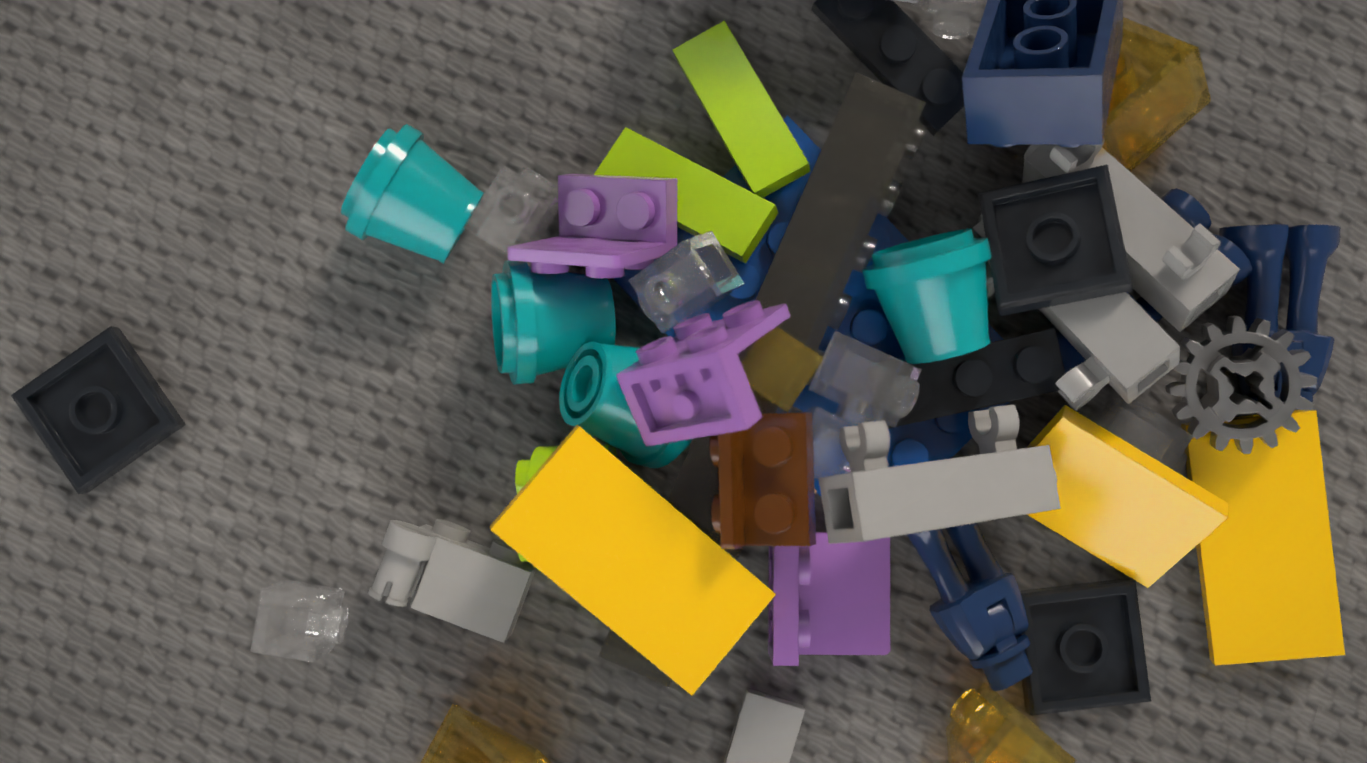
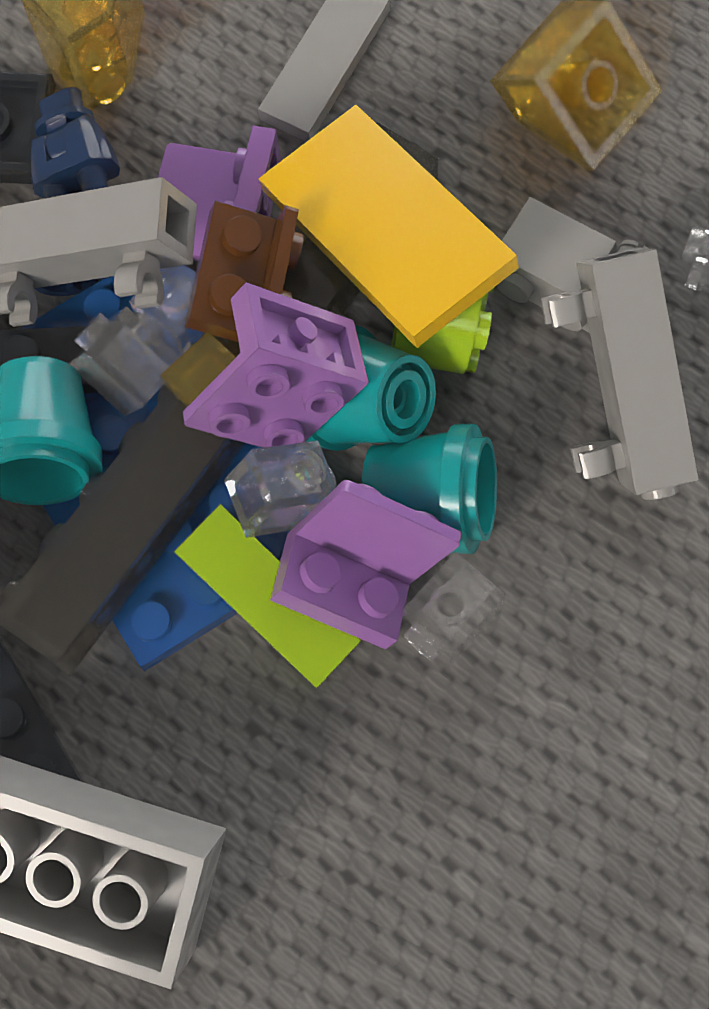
camera: 160 degrees left, 15 degrees down
(369, 466) = (636, 373): none -> light grey brick
(410, 196) = (558, 640): teal piece -> none
(741, 110) = (188, 676): lime tile -> none

